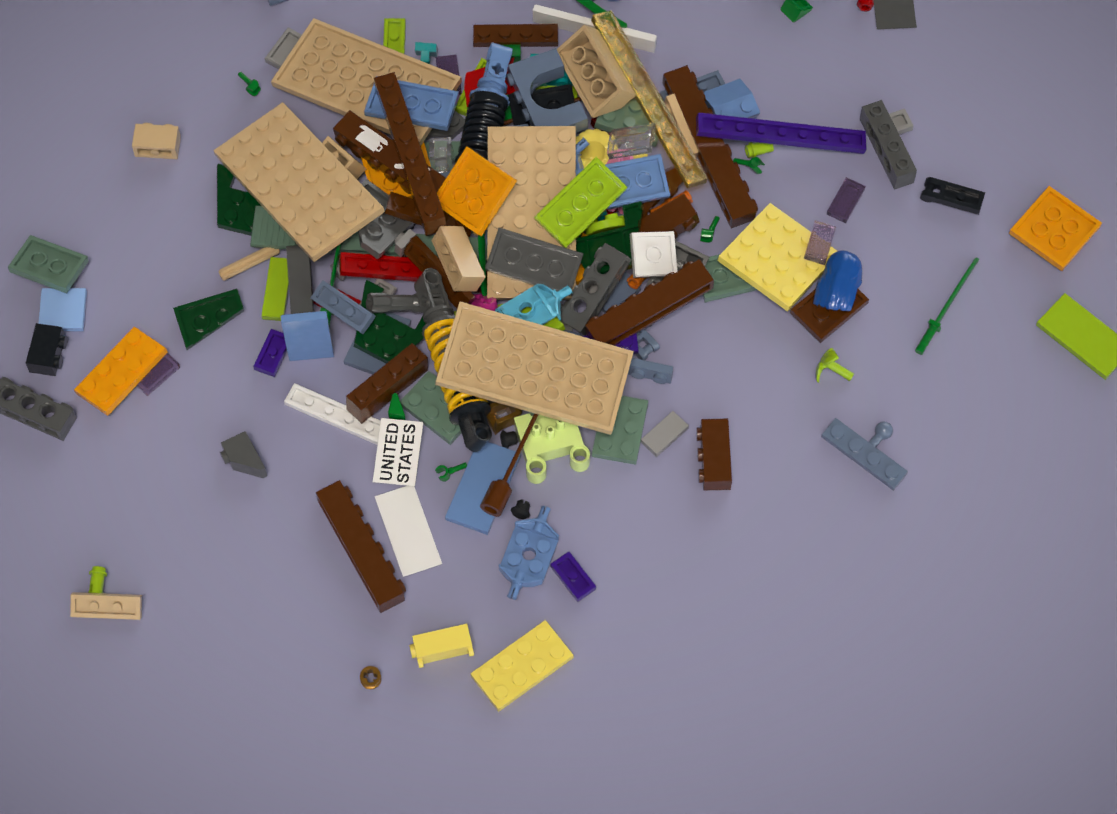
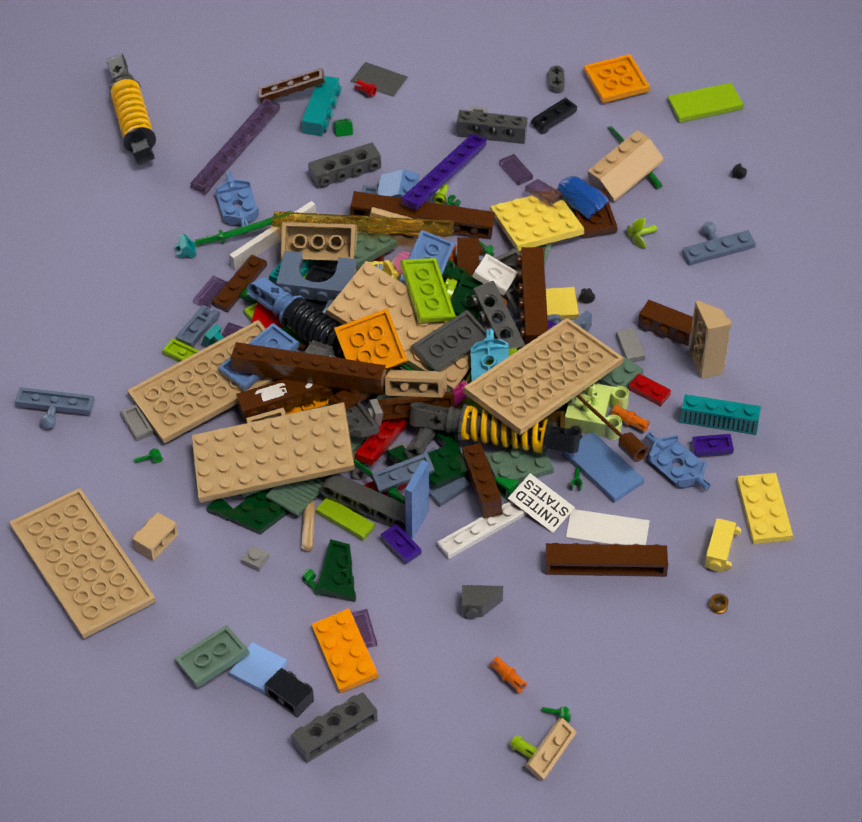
camera: 60 degrees left, 15 degrees down
(94, 99) = (82, 563): none -> tan plate
(155, 599) = (563, 712): none -> green hand
(172, 526) = (508, 674): none -> orange pin
(185, 238) = (255, 558): none -> light grey plate
(187, 294) = (308, 577): none -> green hand
(434, 30) = (197, 326): none -> sand blue plate
(487, 15) = (209, 291): none -> clear purple tile
(560, 481) = (630, 418): none -> orange pin
(614, 481) = (649, 390): none -> red plate
(616, 564) = (720, 414): none -> teal brick
(631, 141) = (395, 243): clear slope -> none
(678, 336) = (562, 302): none -> light yellow tile
(687, 503) = (709, 339): none -> tan slope
(706, 358) = (586, 296): none -> black piece
(748, 39) = (344, 165): none -> dark grey brick
(914, 302) = (625, 165): none -> tan slope
(996, 420) = (739, 171): none -> black piece
(1010, 167) = (556, 79): none -> dark grey beam

